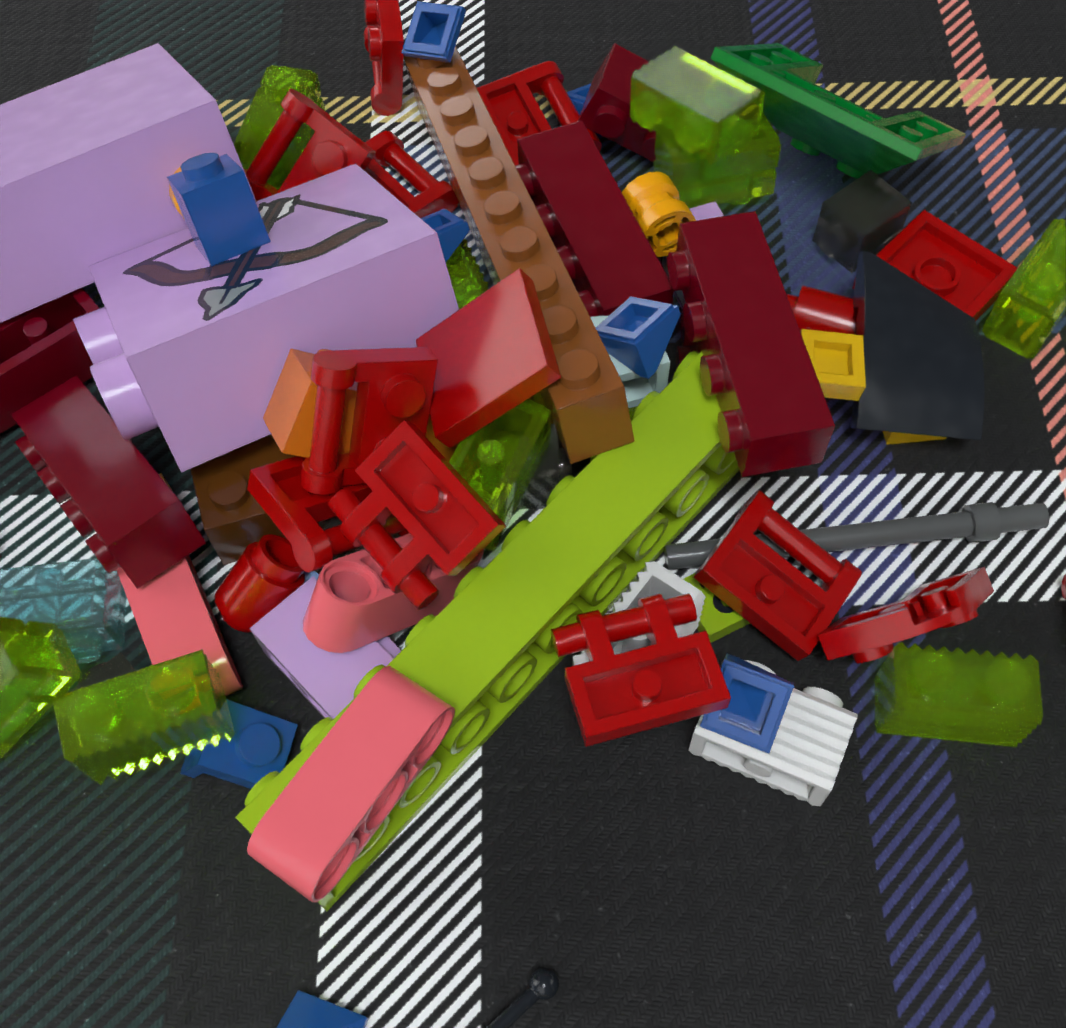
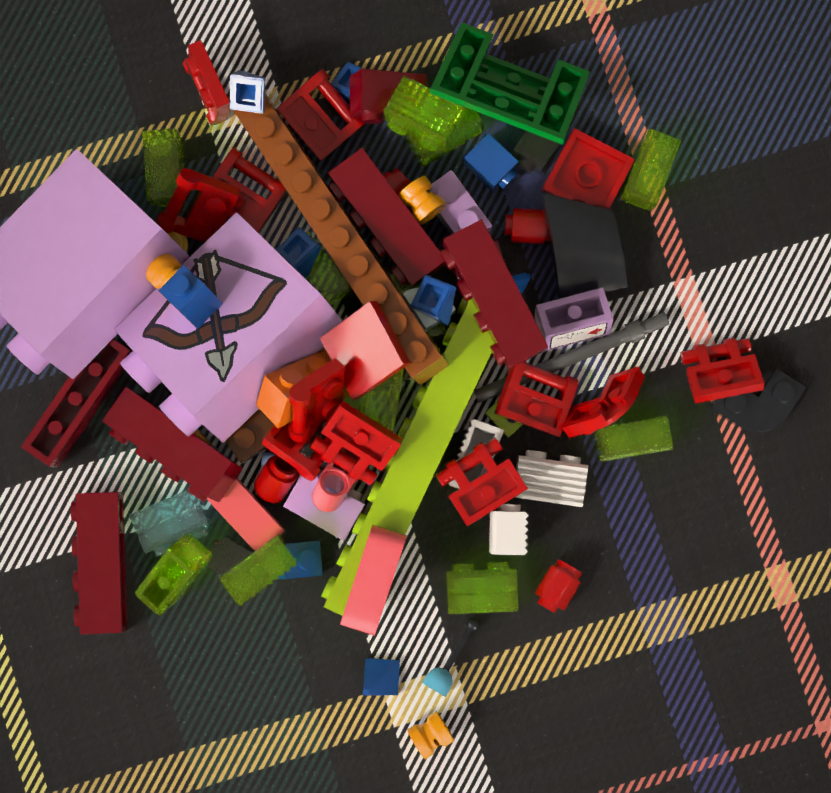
camera: 20 degrees left, 25 degrees up
(581, 908) = (481, 589): none -> clear neon green brick
(668, 792) = (508, 530): none -> white brick
(745, 951) = (558, 586): none -> red brick
(754, 706) = (537, 477): blue slope -> none
(788, 222) = (491, 163): none -> blue brick
(837, 362) = (538, 271): yellow plate -> none
(881, 464) = (574, 318): none -> lavender brick

